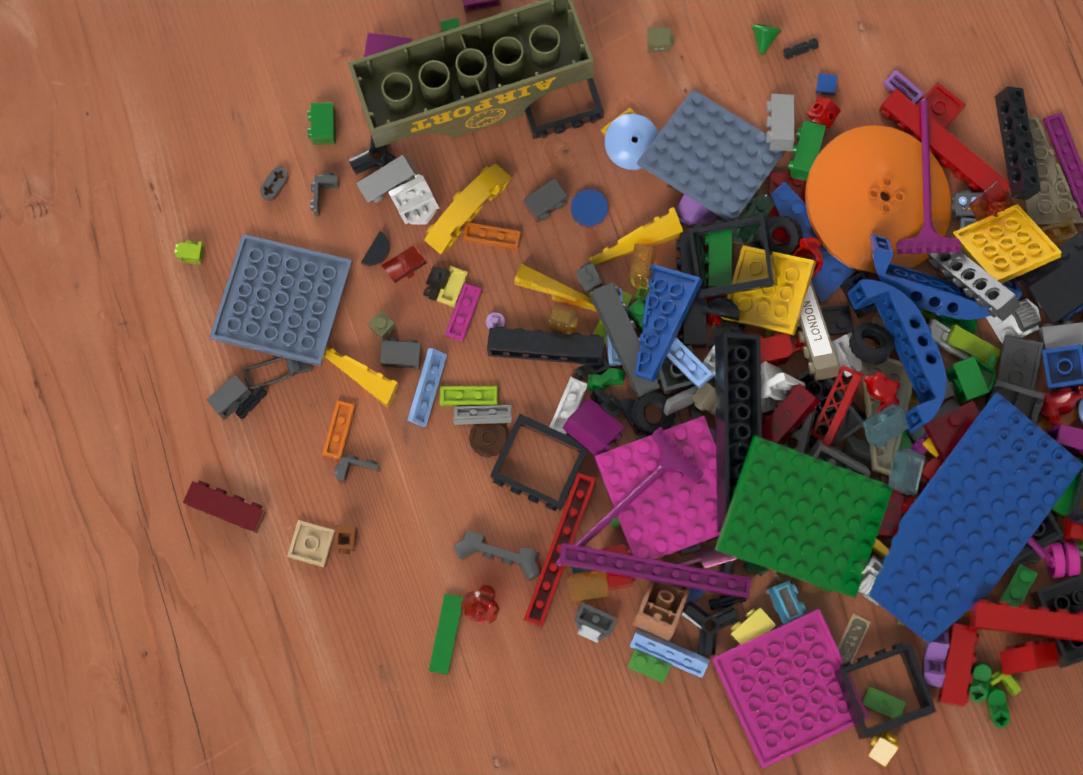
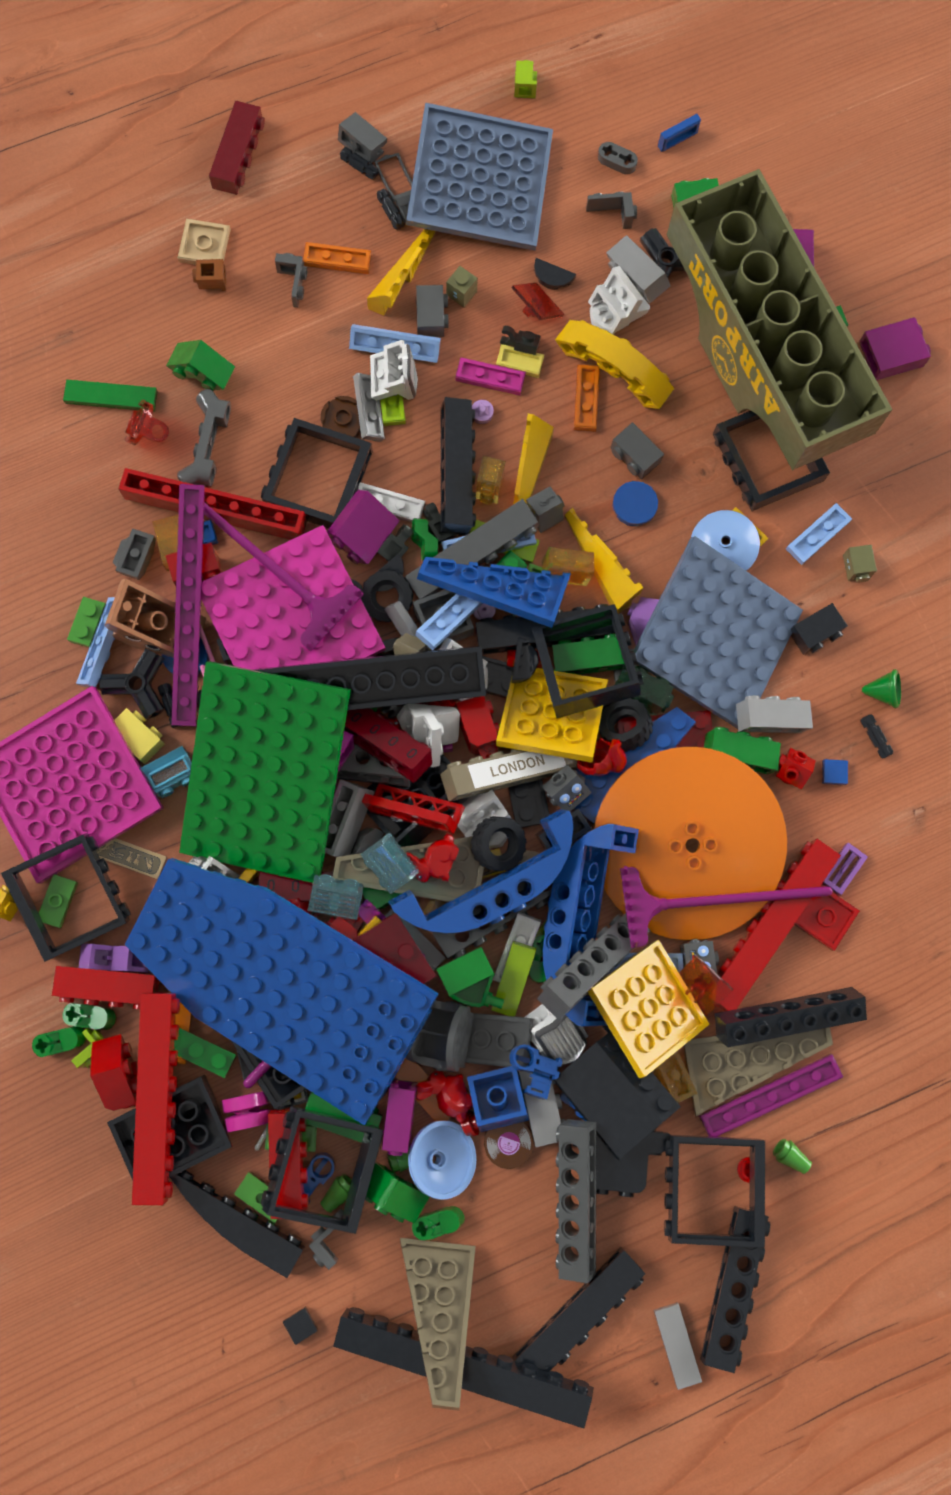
camera: 75 degrees right, 0 degrees up
(259, 129) = (679, 133): none -> blue tile
(298, 380) = (390, 209): none -> black axle
(432, 552) = (201, 362): none -> green brick
(458, 389) = (393, 372): none -> white piece
(630, 67) = (818, 533): none -> light blue plate
(710, 79) = (817, 629): none -> black brick
(829, 287) = (566, 789): none -> dark grey head
(1048, 331) = (541, 1072): none -> blue piece

